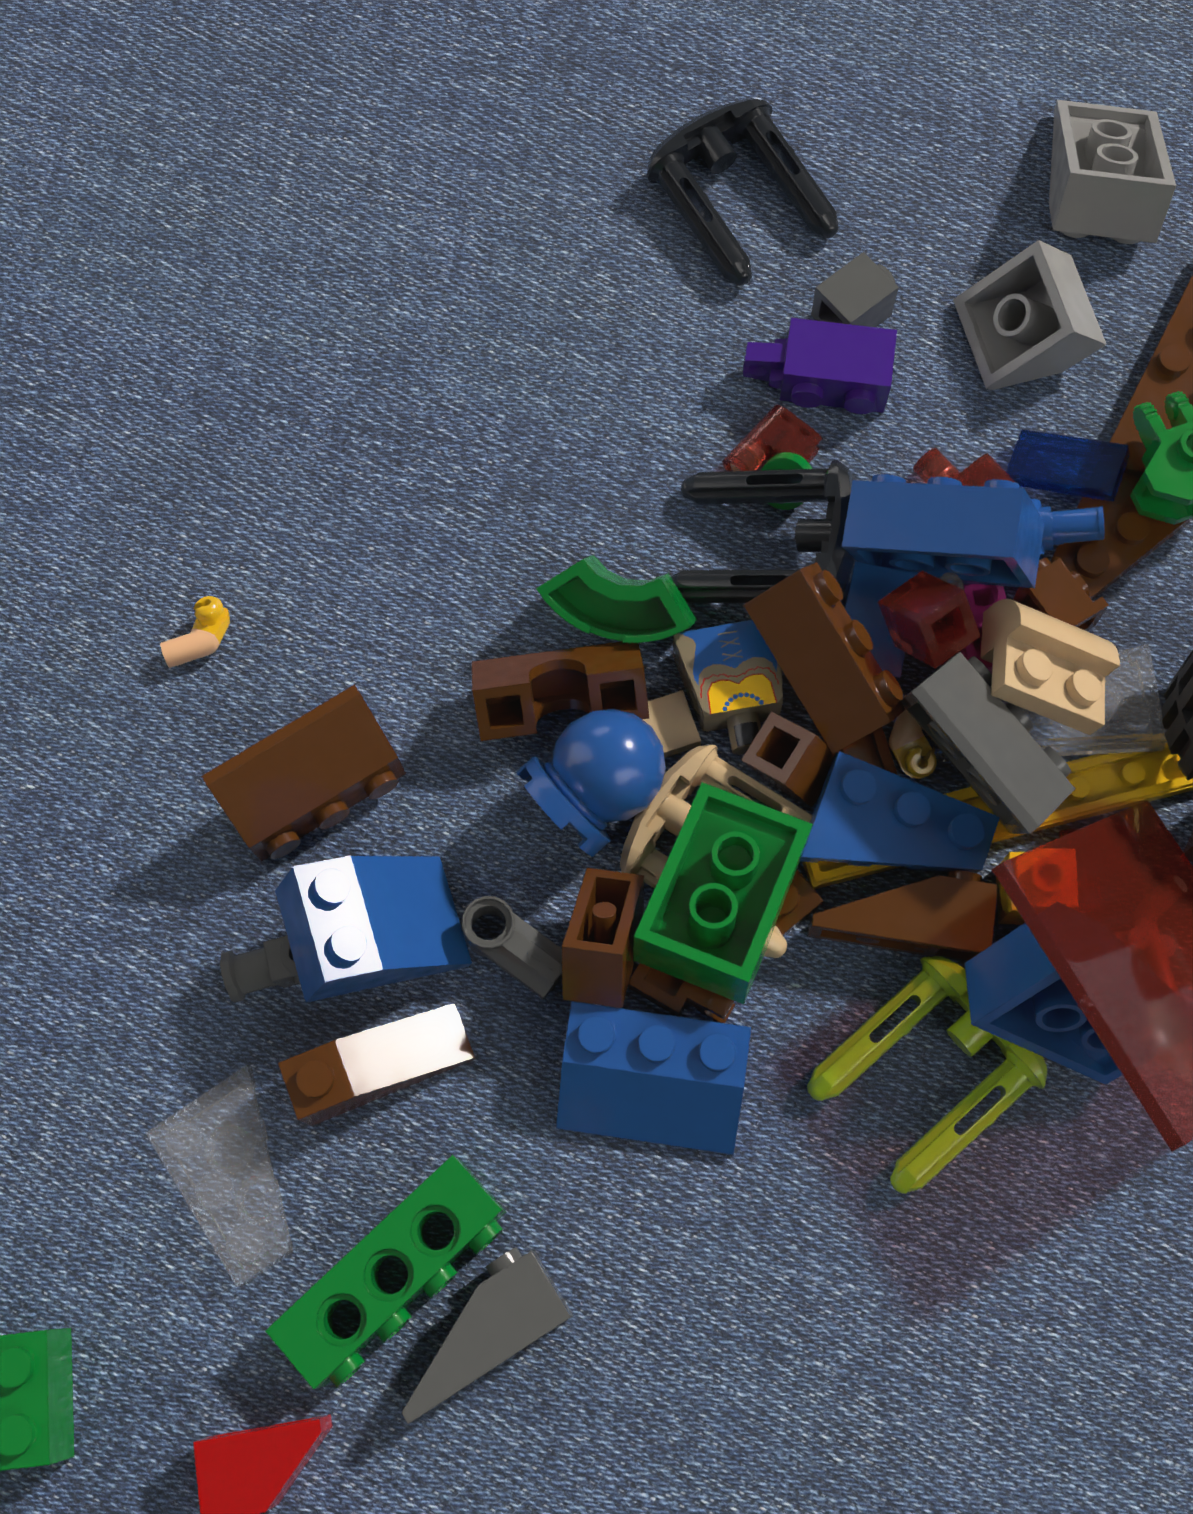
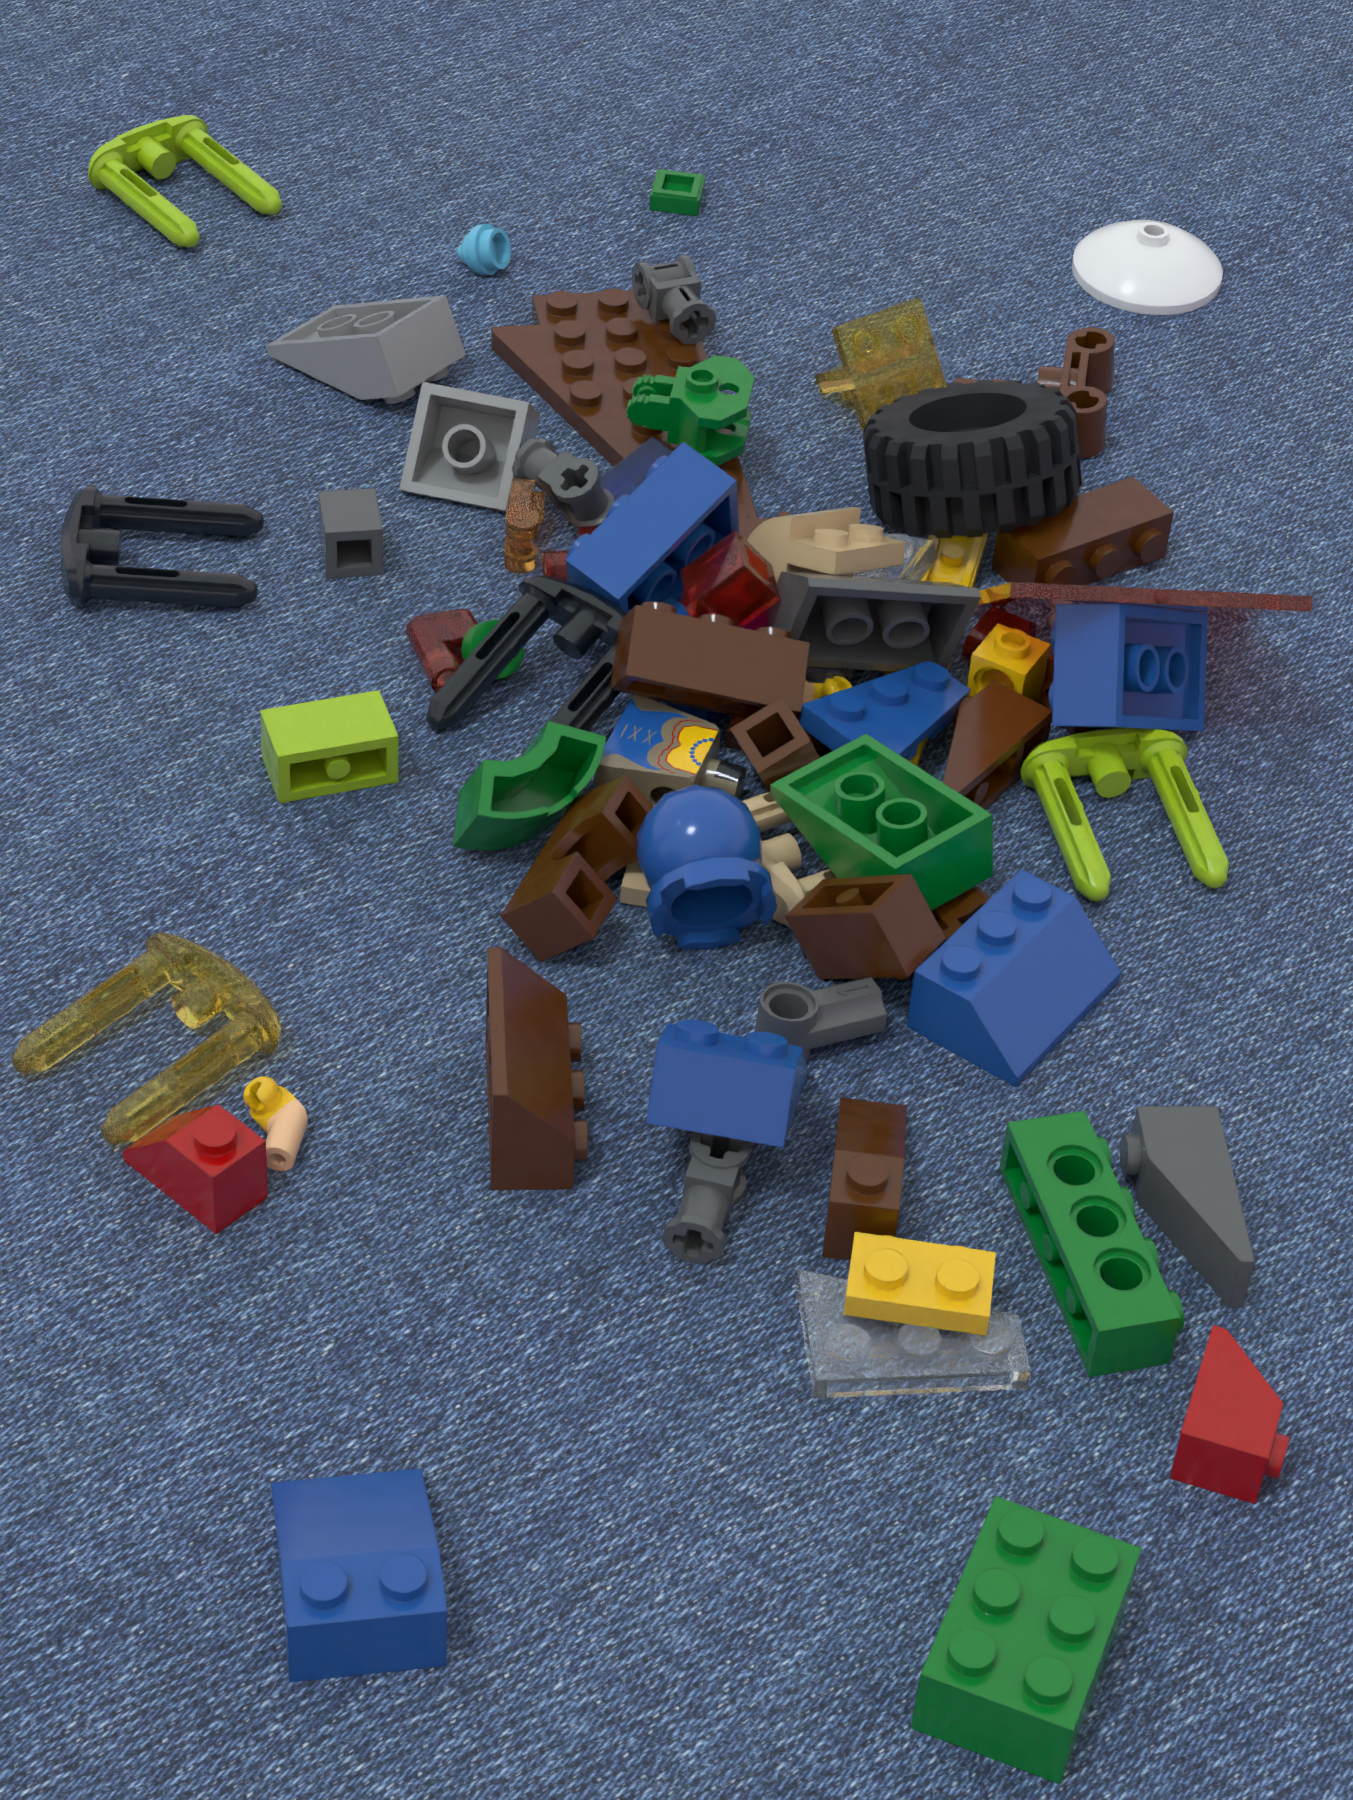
camera: 70 degrees left, 30 degrees down
(122, 610) = (205, 1164): none -> red slope
(261, 1166) = (920, 1283): none -> yellow bracket
(290, 520) = (206, 987): none -> clear yellow piece
(593, 435) = (329, 746): none -> lime brick
(827, 365) = (401, 574): dark purple hinge -> none
(972, 403) = (522, 522): none -> clear orange plate
(1019, 416) = (567, 480): none -> dark grey connector

